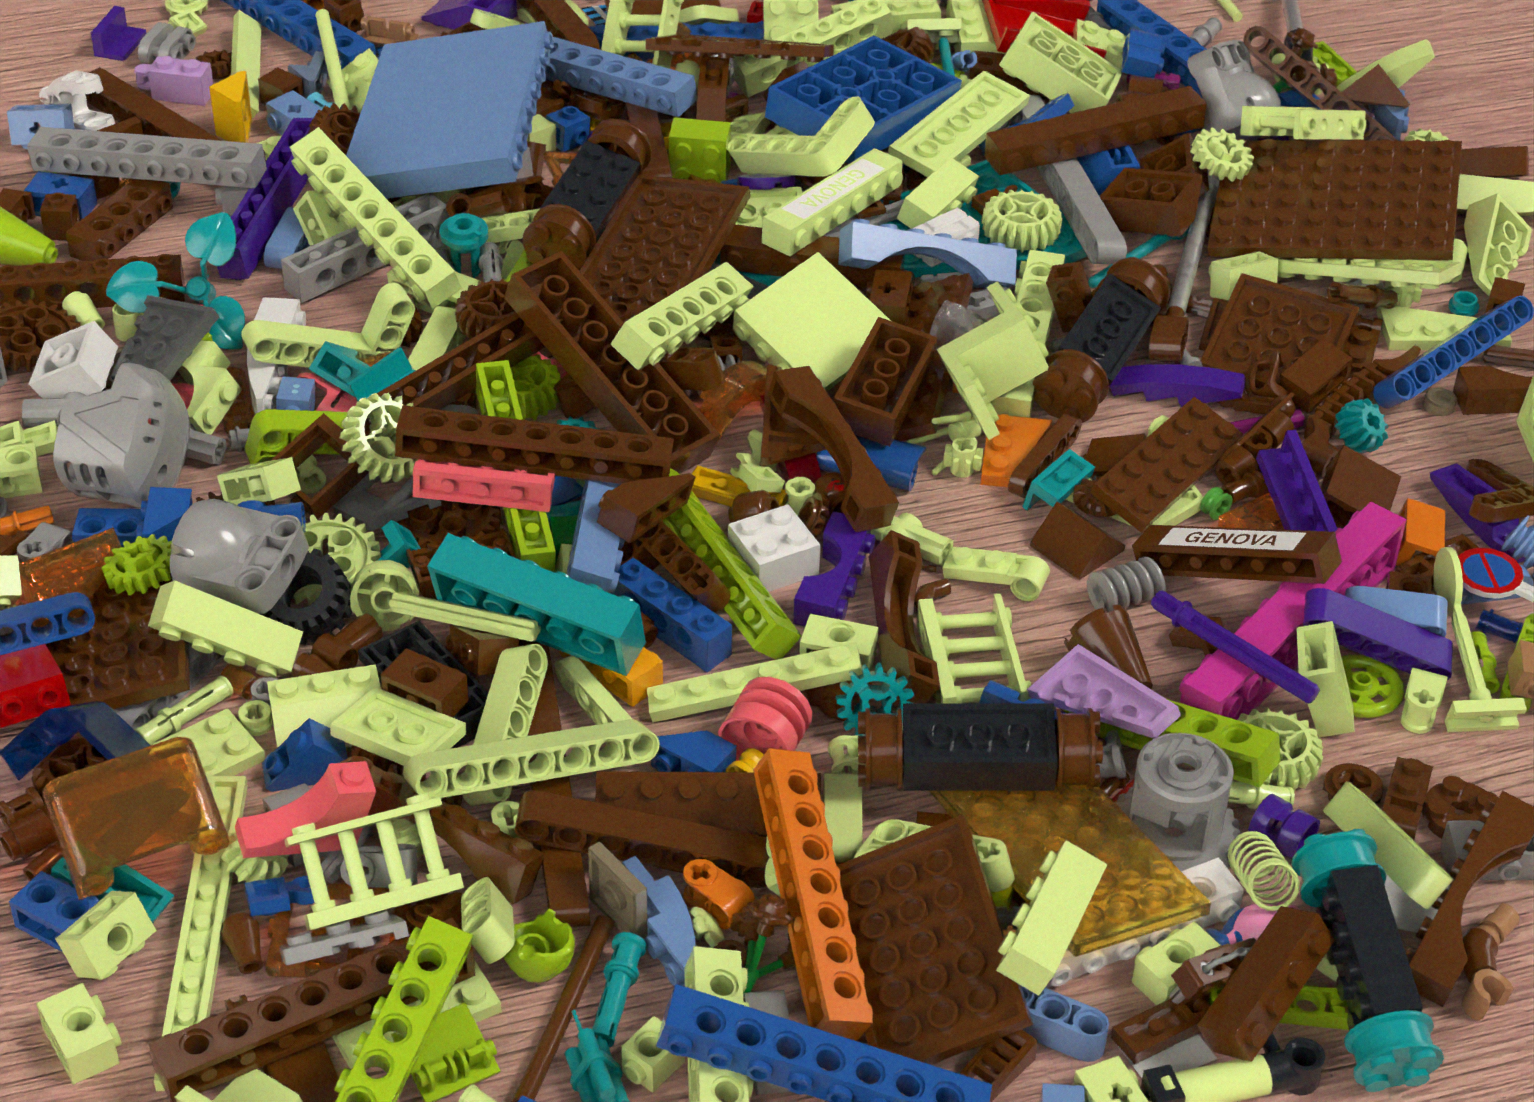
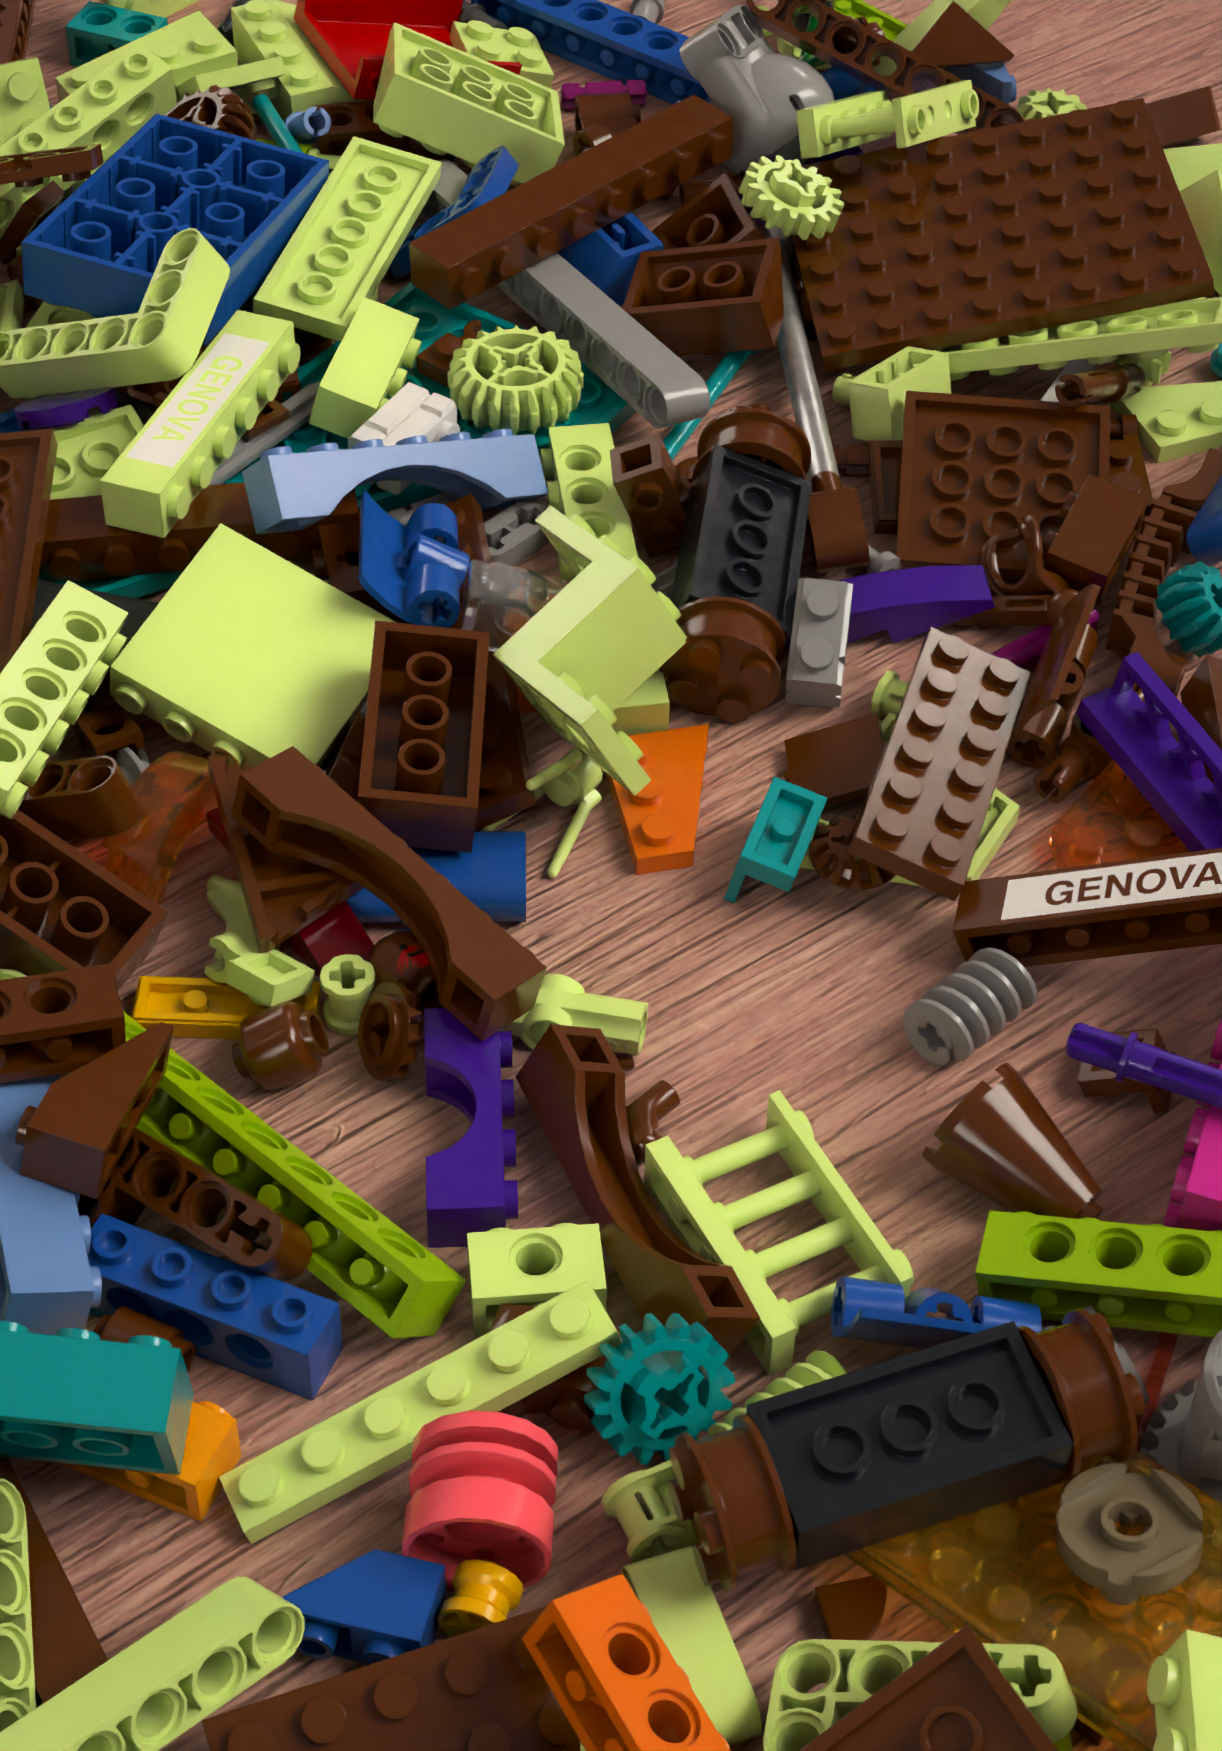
camera: 20 degrees left, 5 degrees up
(589, 692) = (126, 1533): yellowish green beam -> none
(776, 547) = (348, 1106): white brick -> none
(912, 299) = (413, 566): none -> blue panel
(963, 457) = (594, 834): yellowish green gear -> none
(1022, 572) = (785, 1031): yellowish green plate -> none
(1047, 450) = (725, 795): reddish brown beam -> none
(1074, 542) = (843, 945): reddish brown slope -> none
(1087, 681) = (1049, 1249): lavender wing -> none
(1090, 825) = (1124, 1564): none -> dark tan plate
(1129, 391) = (818, 642): none -> light grey brick
(1142, 54) = (579, 57): blue brick -> none
(1216, 503) = (1038, 808): bright green bush -> none

